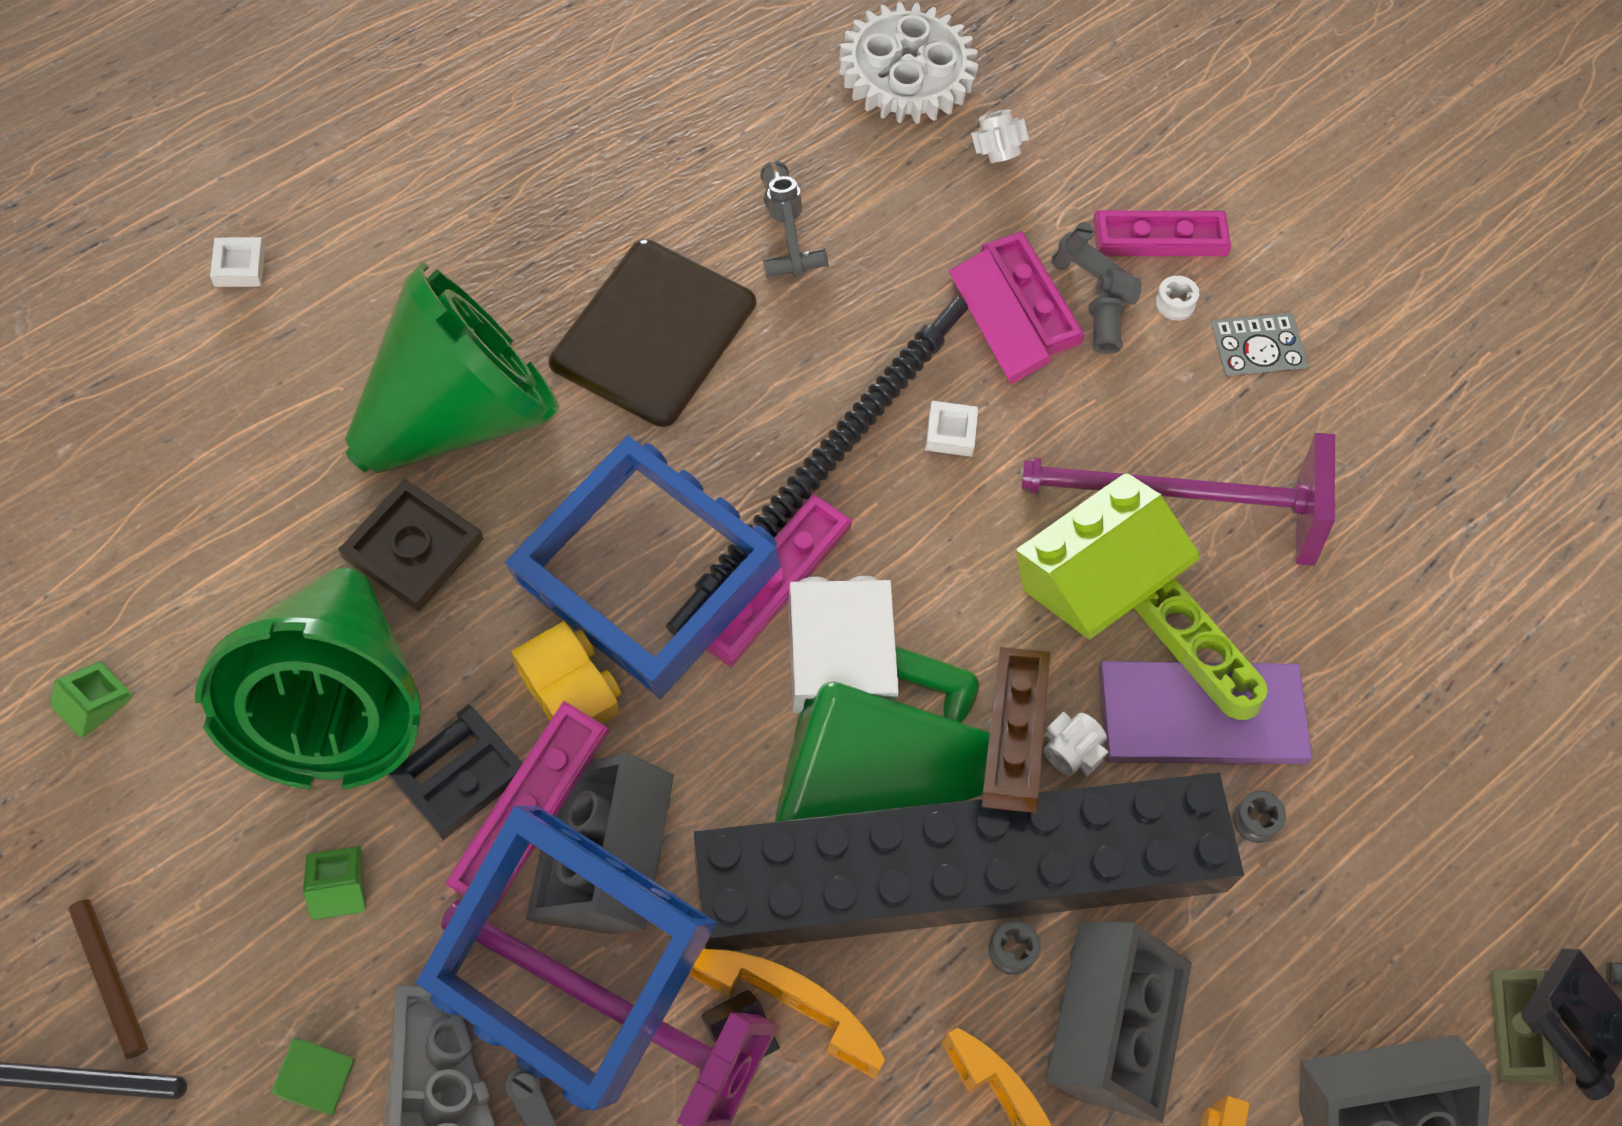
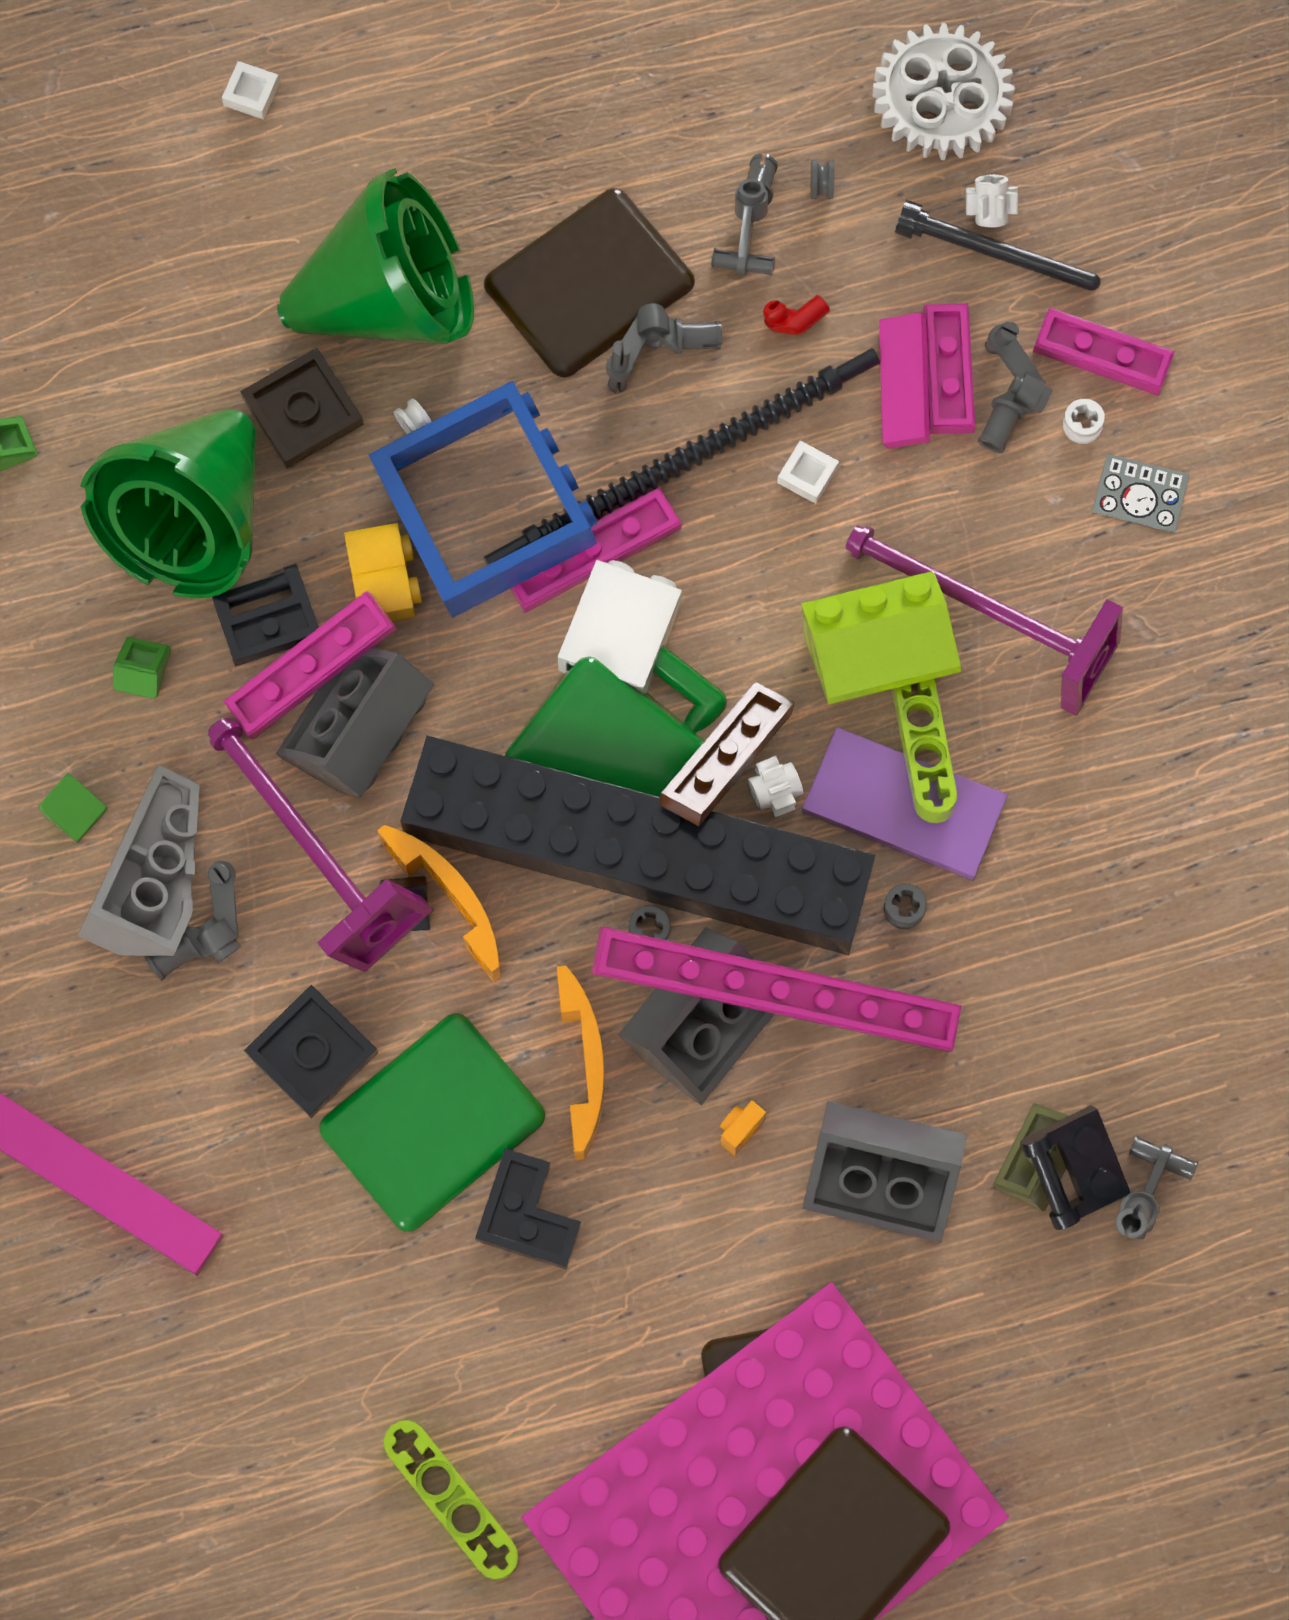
camera: 30 degrees right, 10 degrees up
(498, 1027) = (379, 800): blue window -> none
(533, 512) = (412, 417): none -> white bush
(740, 349) = (654, 329): none -> dark grey pin
(835, 167) = (822, 179): none -> dark grey bush
(861, 301) = (792, 321): none -> red arm
(939, 177) = (917, 222): none -> black piece
(1187, 961) = (775, 989): none -> dark pink tile

